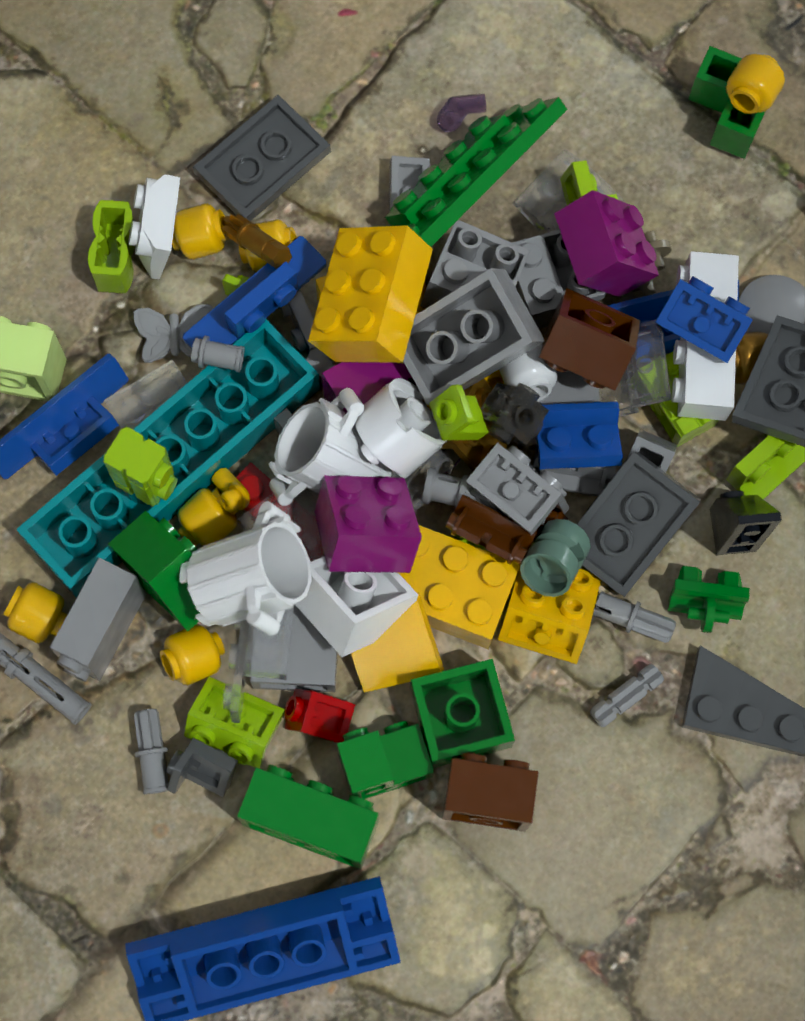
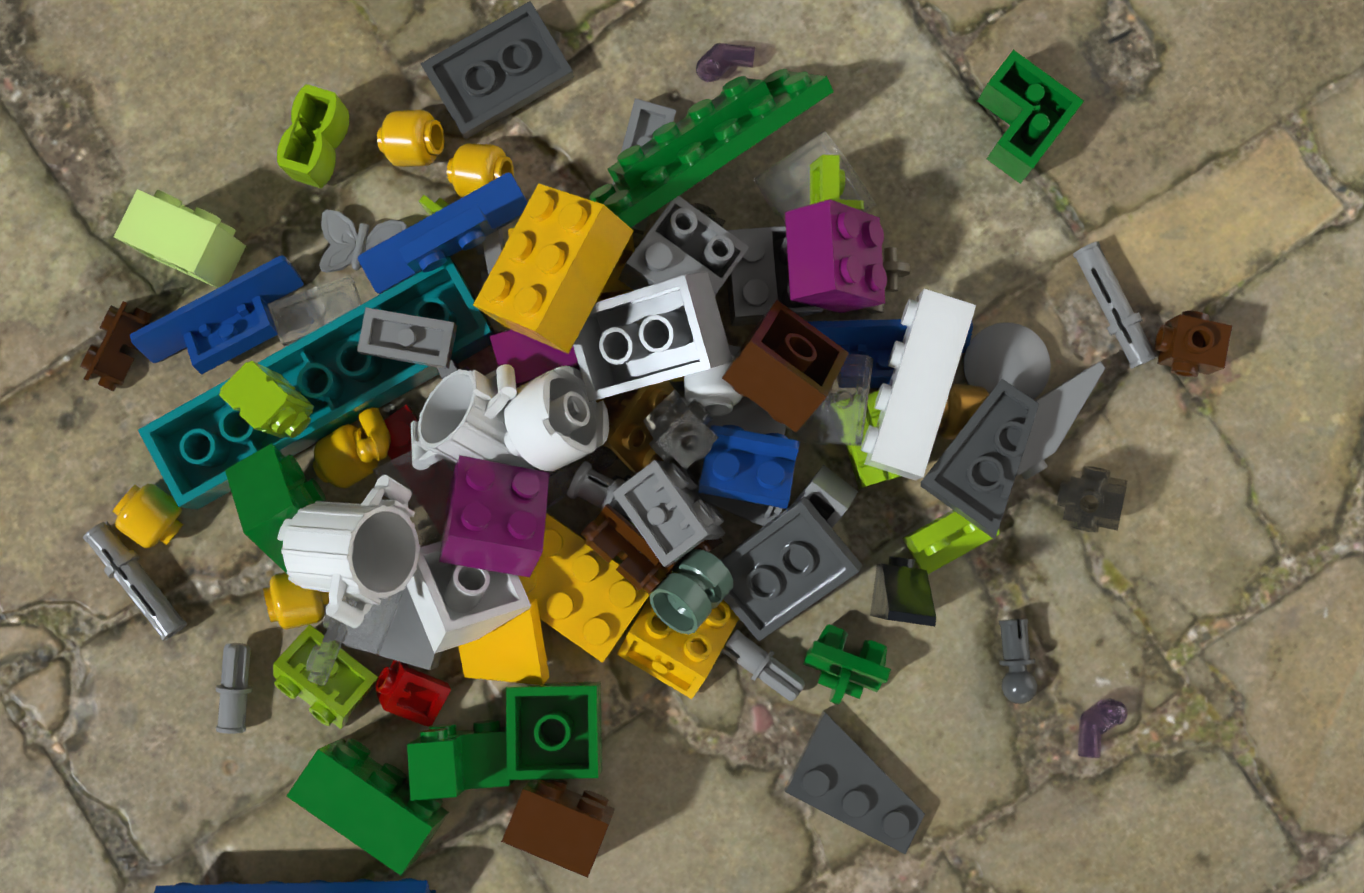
camera: 25 degrees right, 10 degrees up
(98, 621) = (196, 549): light grey brick -> none
(155, 228) = (361, 116): white slope -> none
(203, 766) = (287, 719): dark grey bracket -> none
(217, 354) = (376, 284): light grey pin -> none
(247, 392) = (407, 338): none -> light grey plate
(251, 237) = (457, 162): pearl gold piece -> none
(458, 415) = (618, 422): lime bracket -> none
(626, 695) = (734, 745): light grey axle -> none
(705, 319) = (918, 373): blue bracket -> none
(755, 83) = (1049, 108): yellow head -> none

